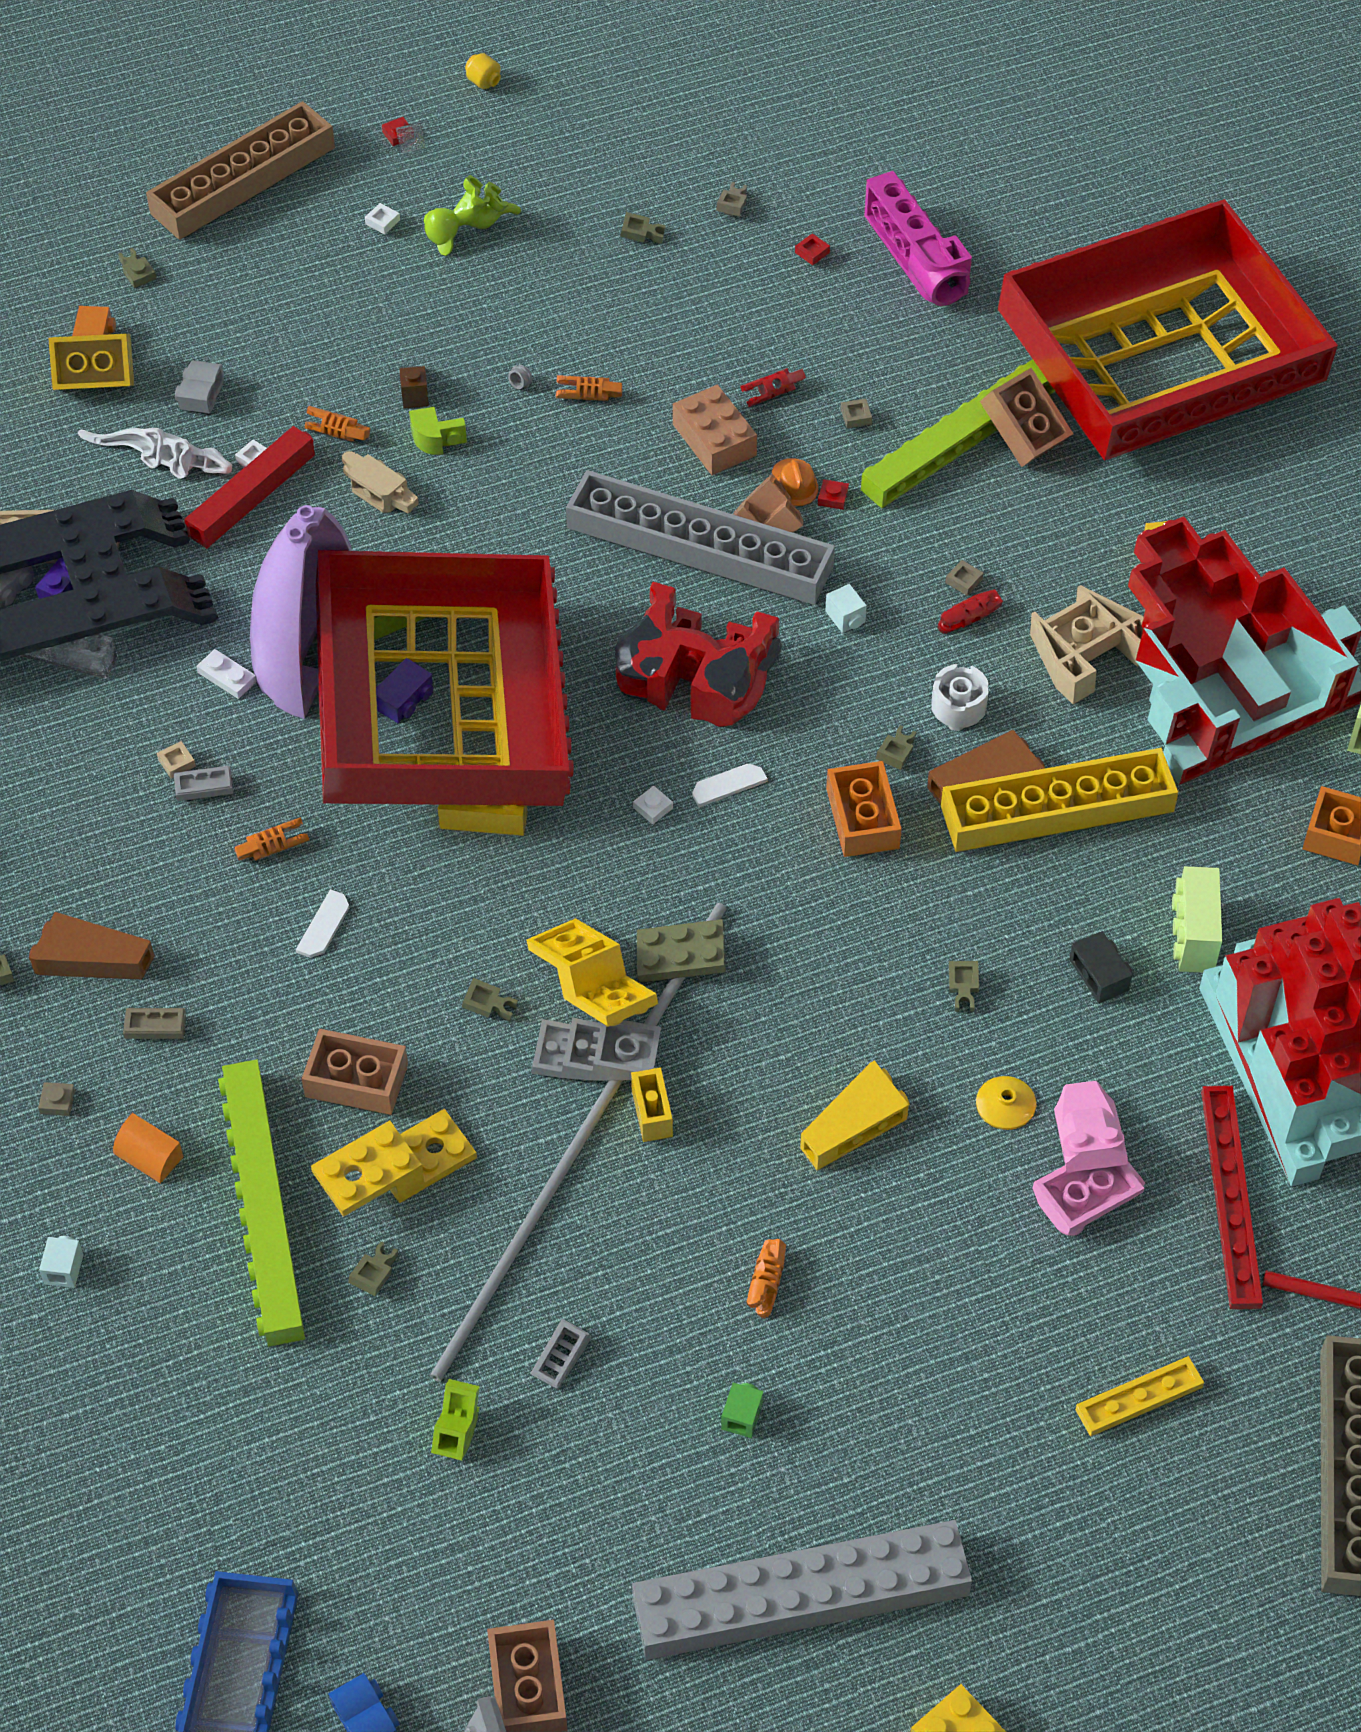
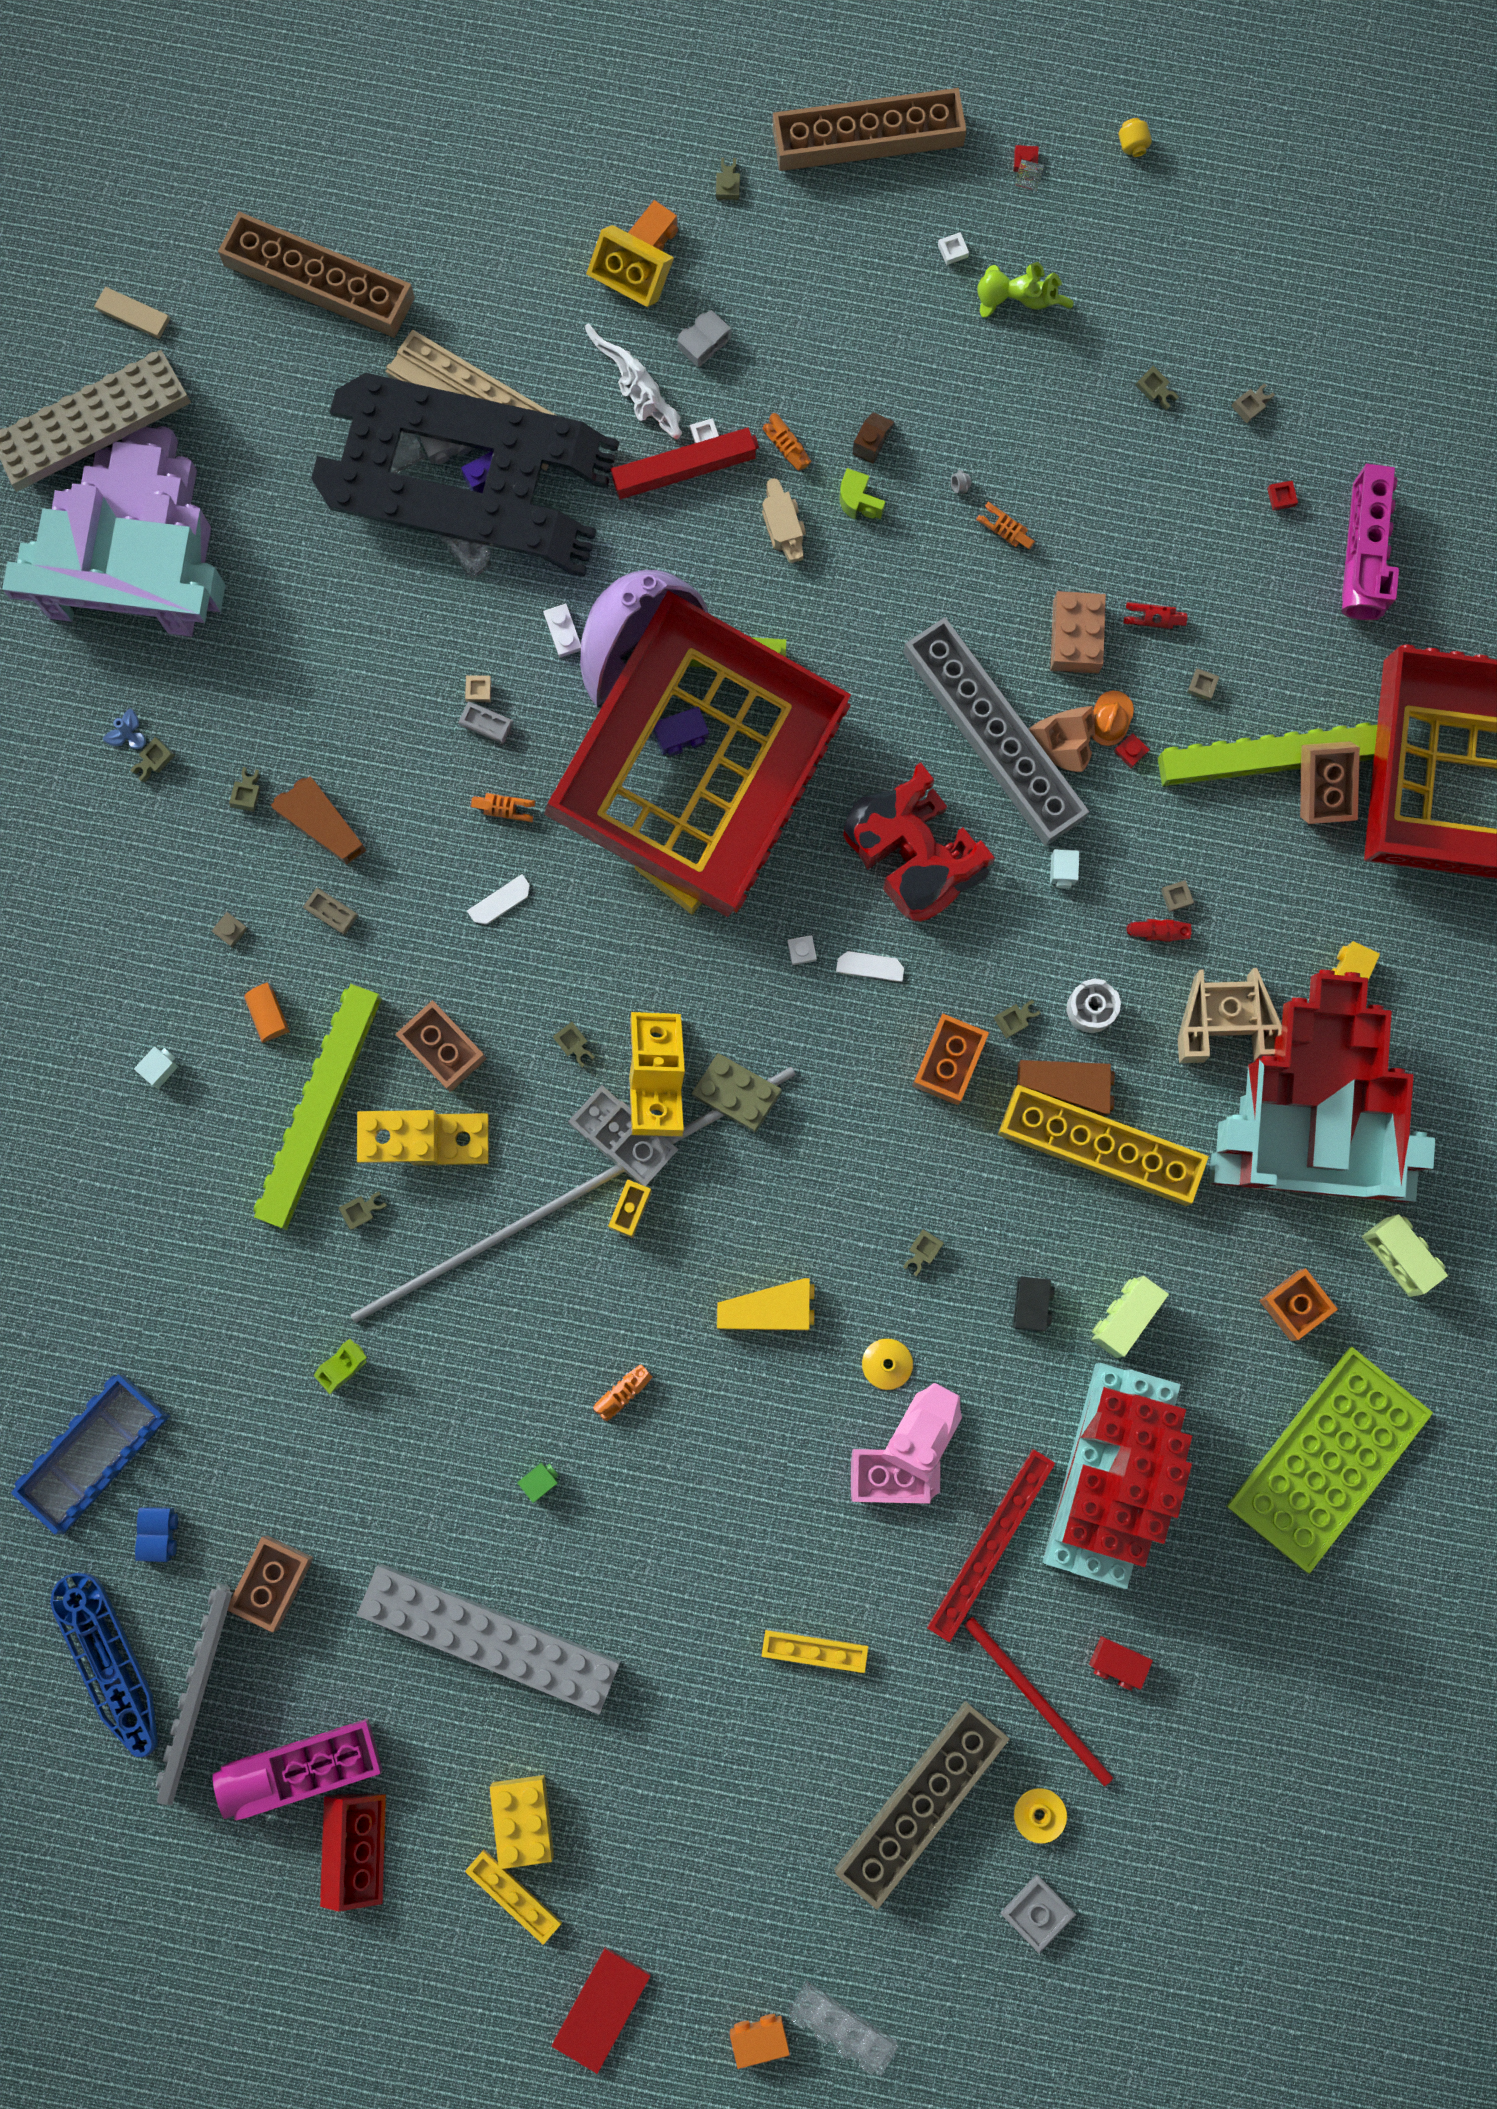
camera: 30 degrees right, 25 degrees up
(557, 1339) = (466, 1348): light grey slope -> none

